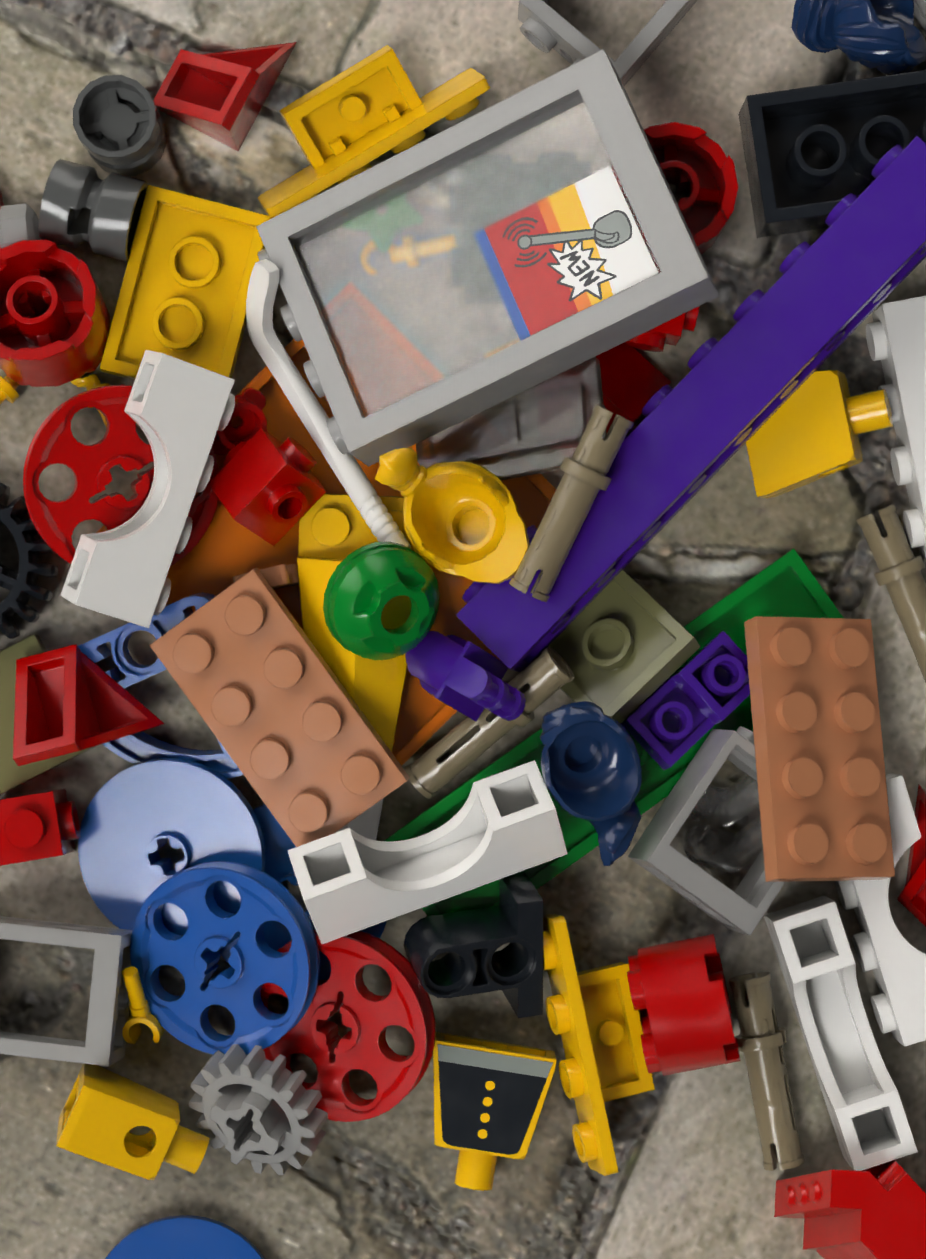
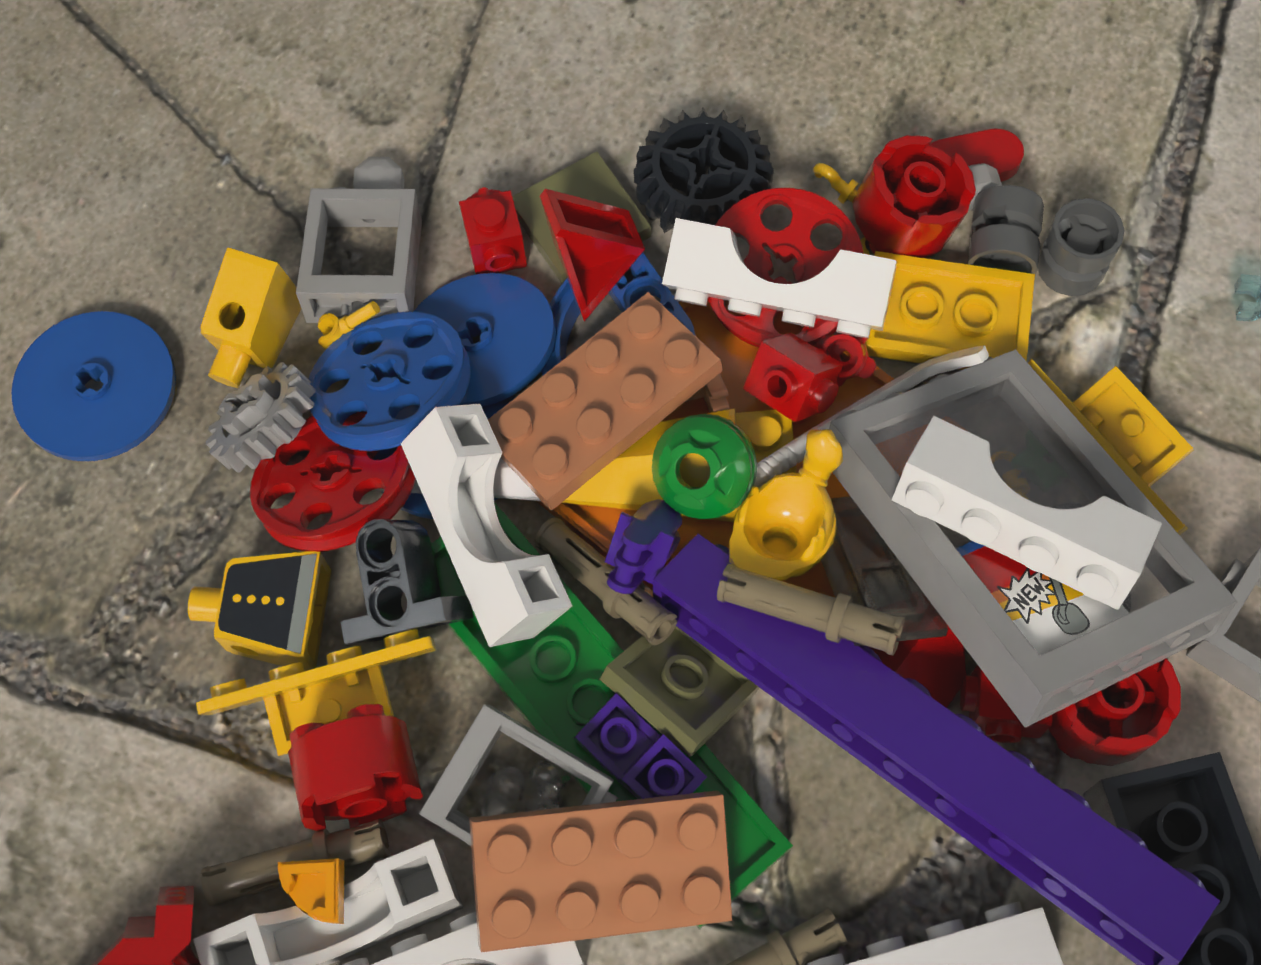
camera: 85 degrees right, 20 degrees down
(222, 89) = (1125, 334): red slope -> none
(454, 328) = (1086, 548): none -> white arch
(593, 772) = (562, 655): dark blue hair -> none
(804, 1047) = (315, 887): none -> light orange tile
(814, 433) = (905, 852): yellow torso -> none

